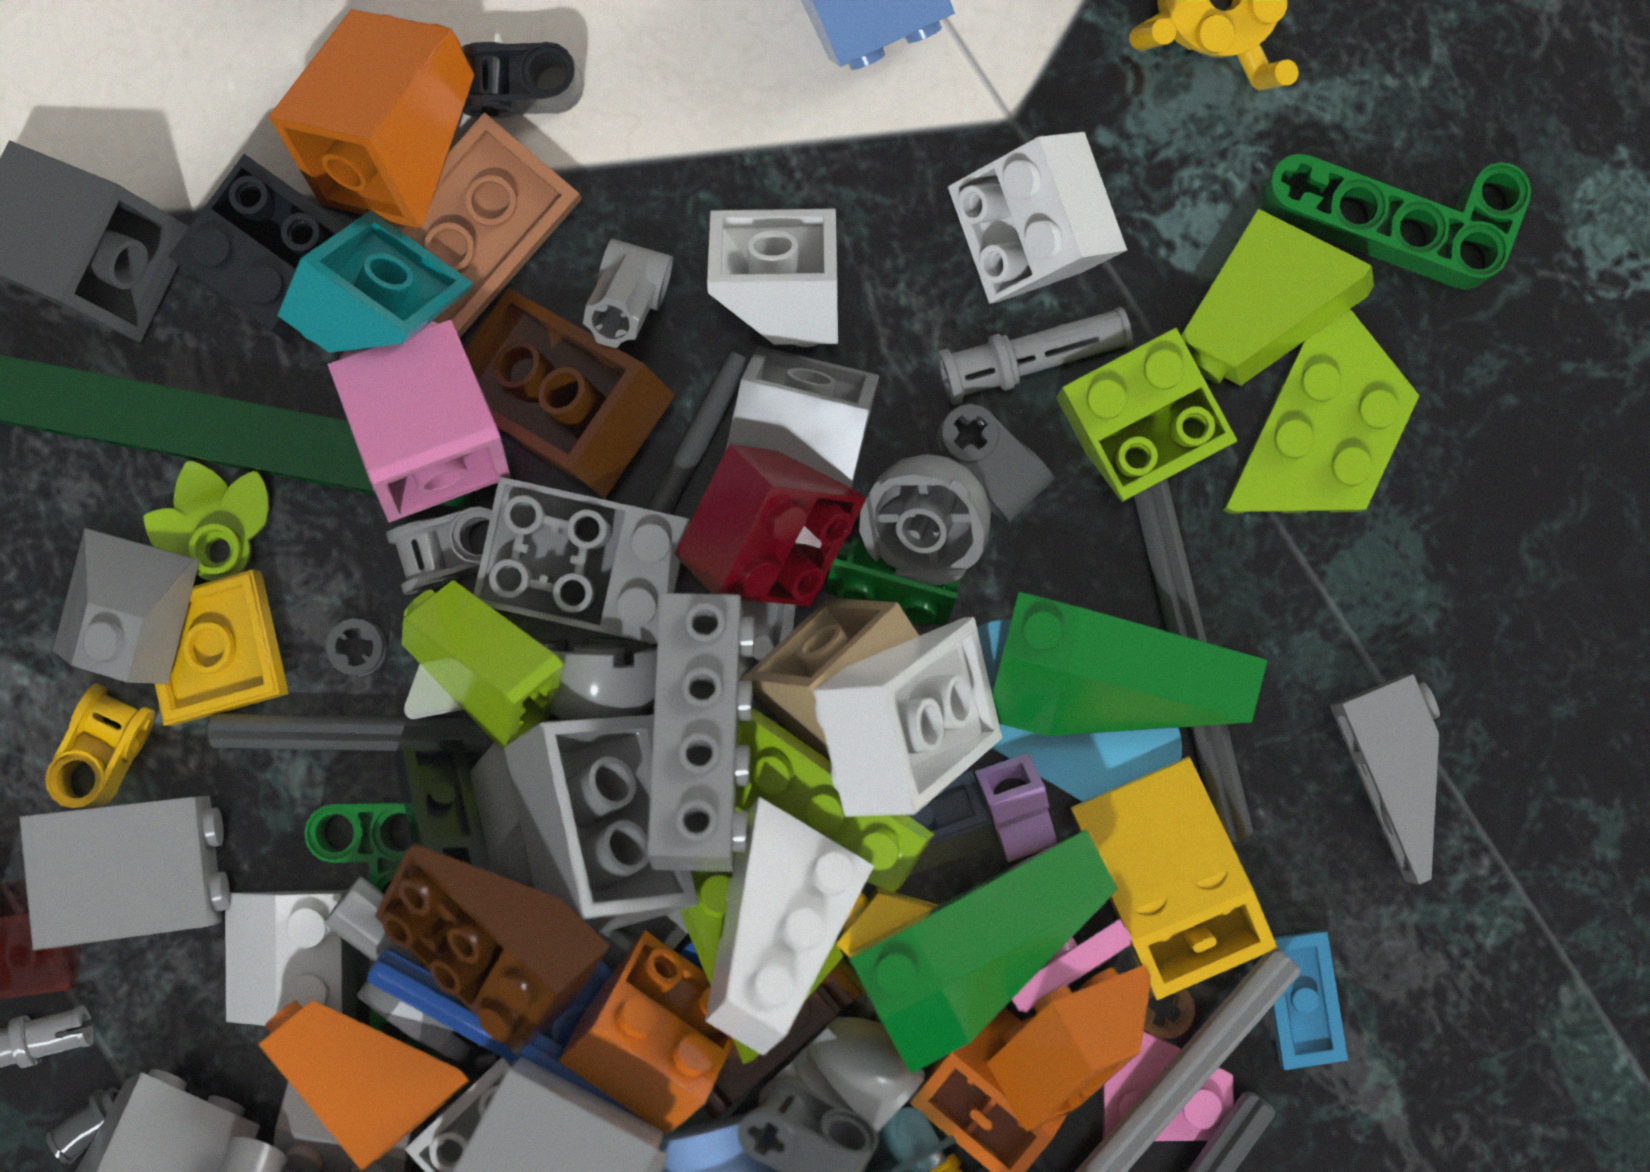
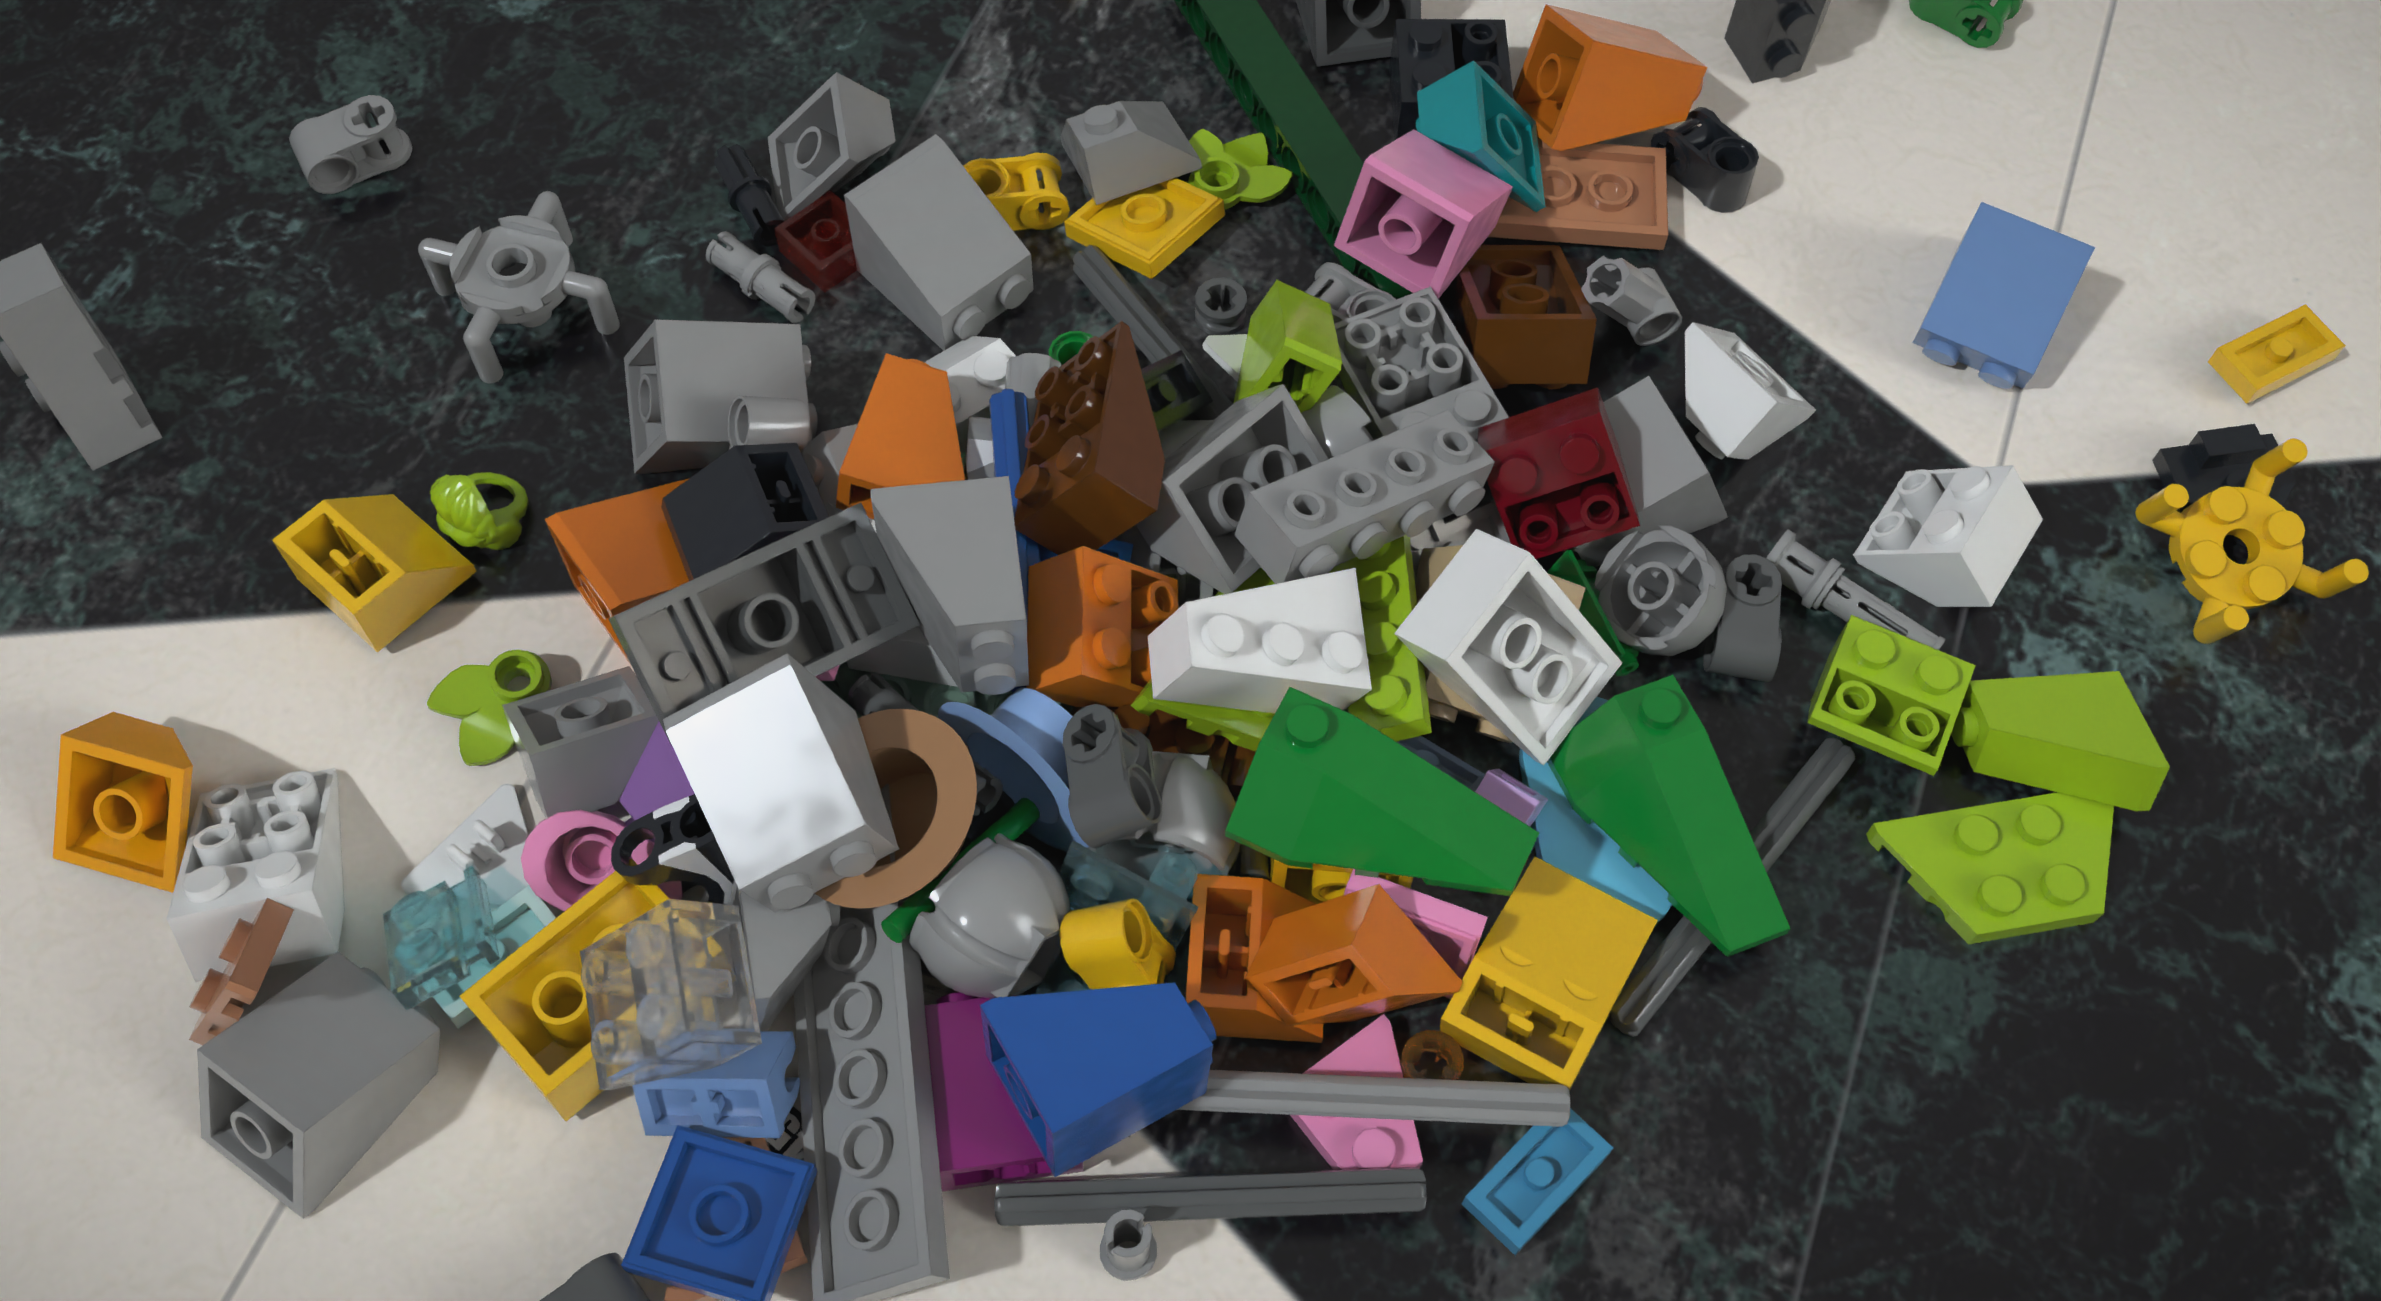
camera: 50 degrees right, 25 degrees down
(1388, 206) = (2219, 783): green beam -> none
(1396, 755) = (1812, 1097): light grey slope -> none

